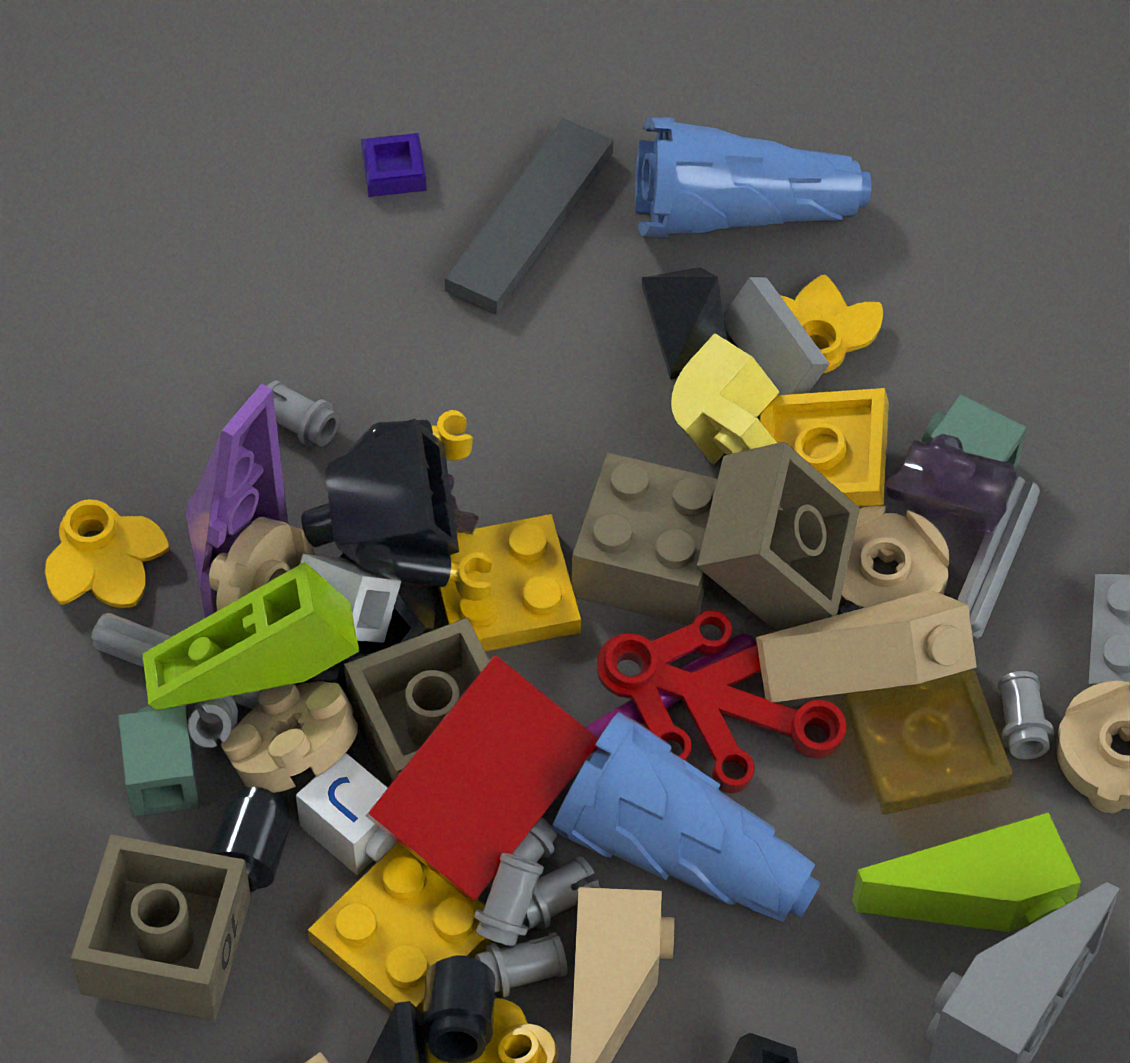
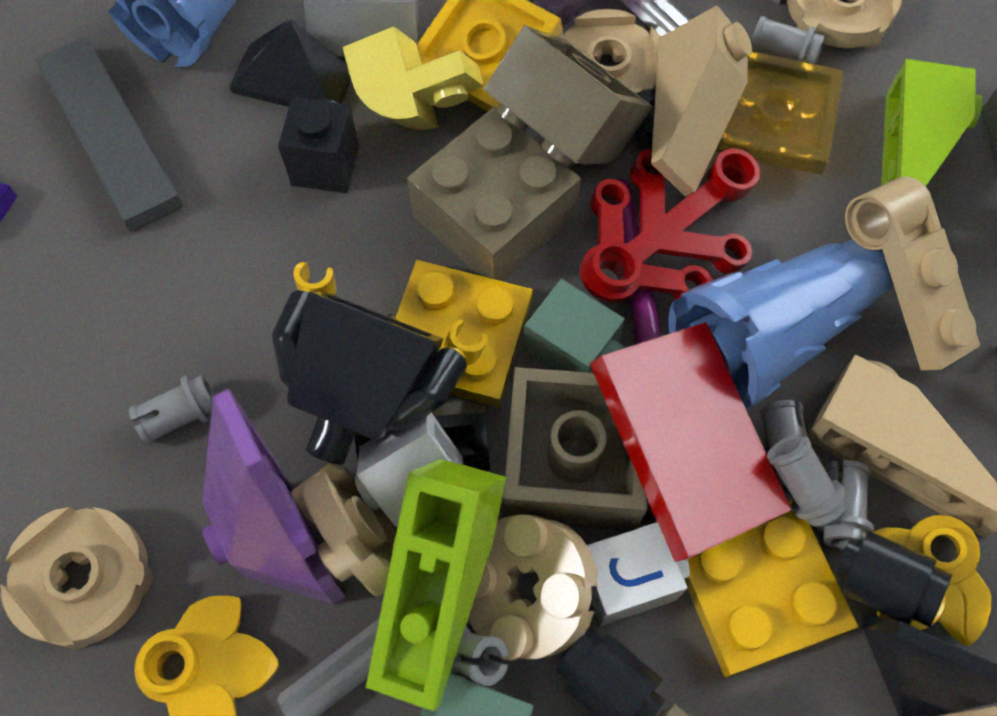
camera: 60 degrees left, 10 degrees up
(130, 457) = (37, 572): none -> tan plate
(555, 659) = (571, 330): none -> sand green brick
(615, 376) = (319, 144): none -> black brick
(791, 915) = (921, 266): none -> tan plate

